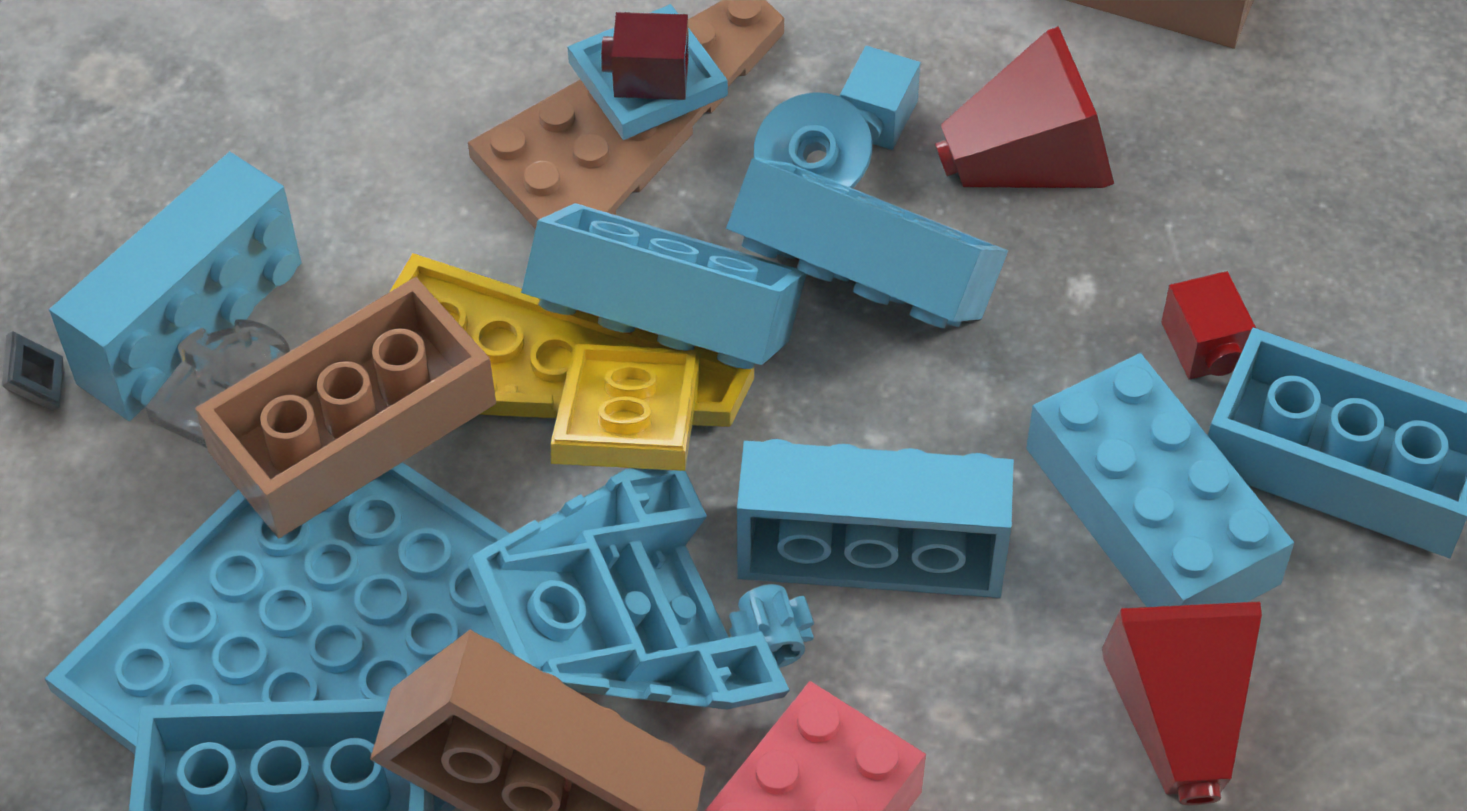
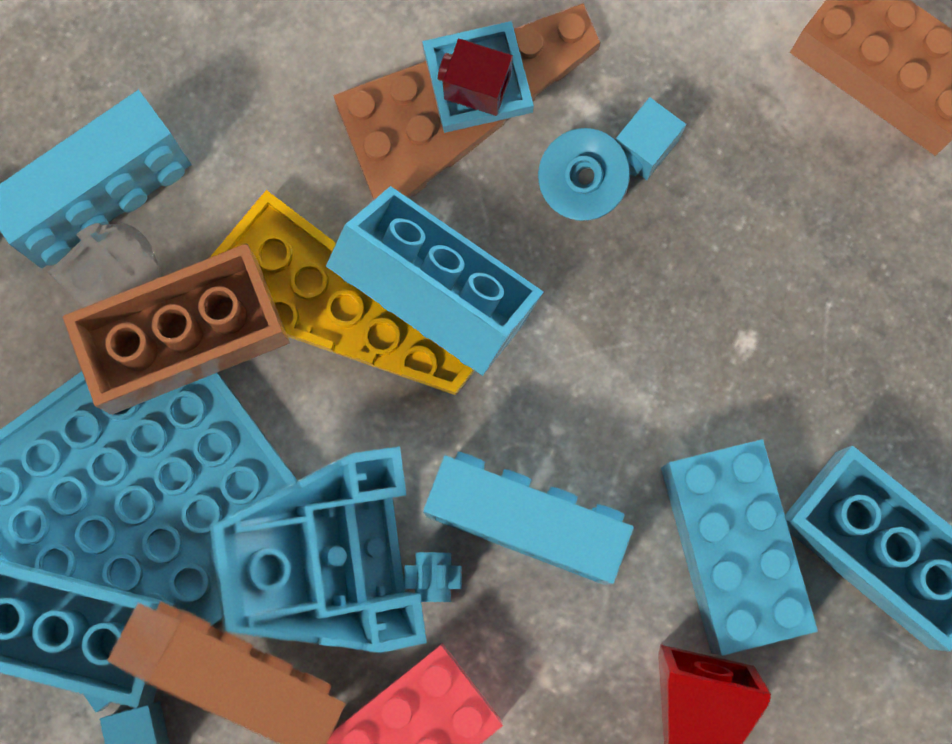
camera: 15 degrees right, 25 degrees up
(626, 407) = (374, 388): yellow tile -> none
(867, 241) = (593, 282): medium azure brick -> none
(1029, 126) = (749, 200): red slope -> none
(1207, 324) = (825, 413): red brick -> none

